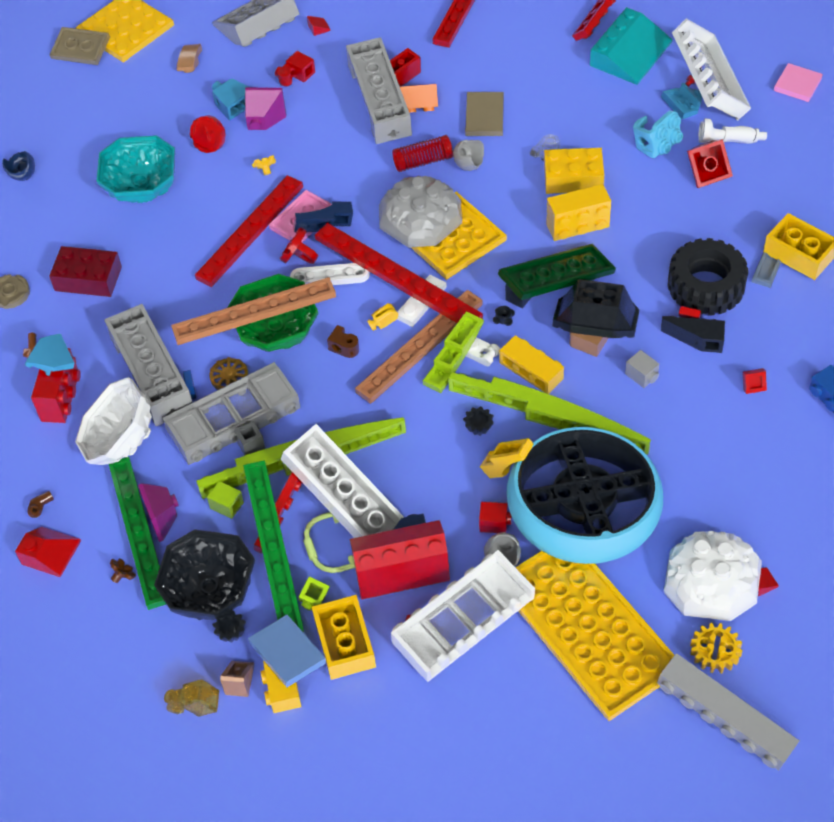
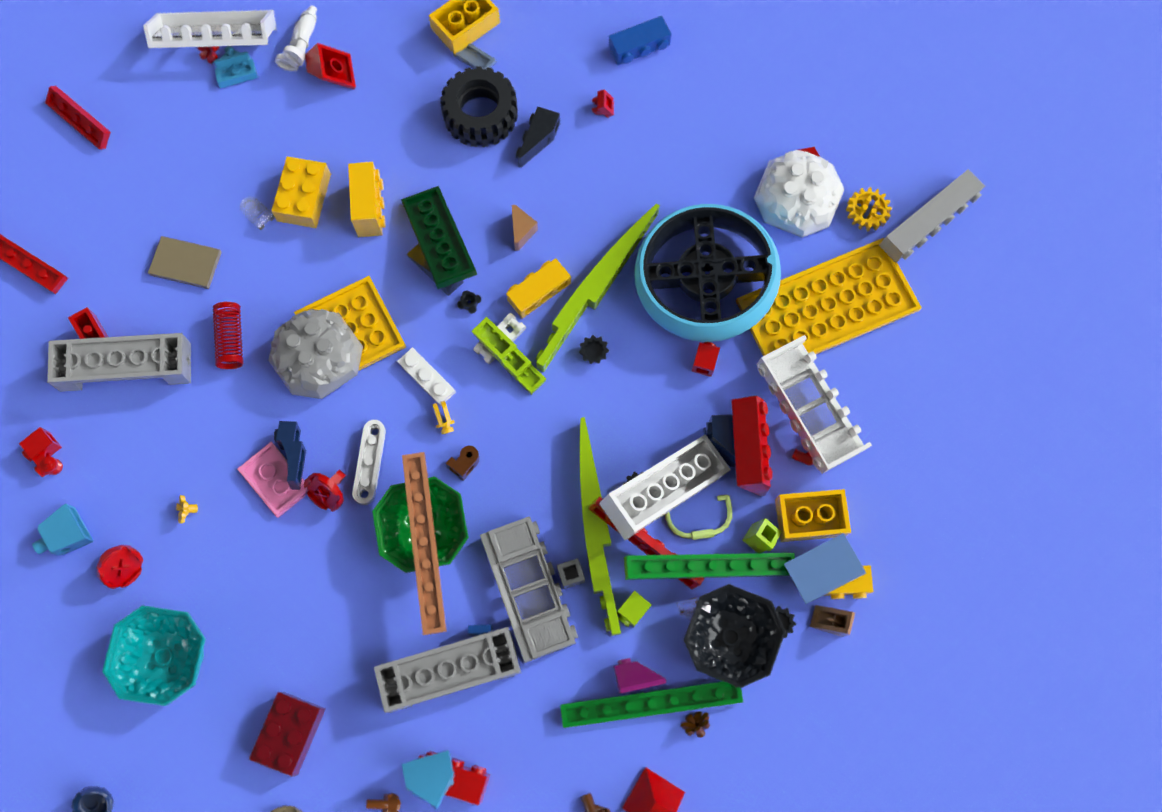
camera: 85 degrees left, 20 degrees up
(114, 424) = (530, 714): white rock -> none
(195, 697) = (854, 665): clear yellow brick -> none
(227, 374) = (472, 587): pearl gold wheel -> none
(248, 231) = (276, 540): red plate -> none
(264, 107) = (100, 496): magenta slope -> none
(394, 273) = (391, 394): red plate -> none
(411, 353) = (488, 389): nougat plate -> none
(420, 97) = (138, 318): slope -> none
(469, 154) = (247, 289): light grey hair -> none
(499, 461) = (656, 329): yellow slope -> none
(506, 544) = (745, 356): light grey hair -> none
(597, 310) = (495, 215): black piece -> none
(629, 47) = (141, 97): teal slope -> none
(642, 369) = (569, 192): light grey brick -> none
(661, 137) = (292, 103): medium azure piece -> none
(686, 312) = (515, 135): red tile -> none

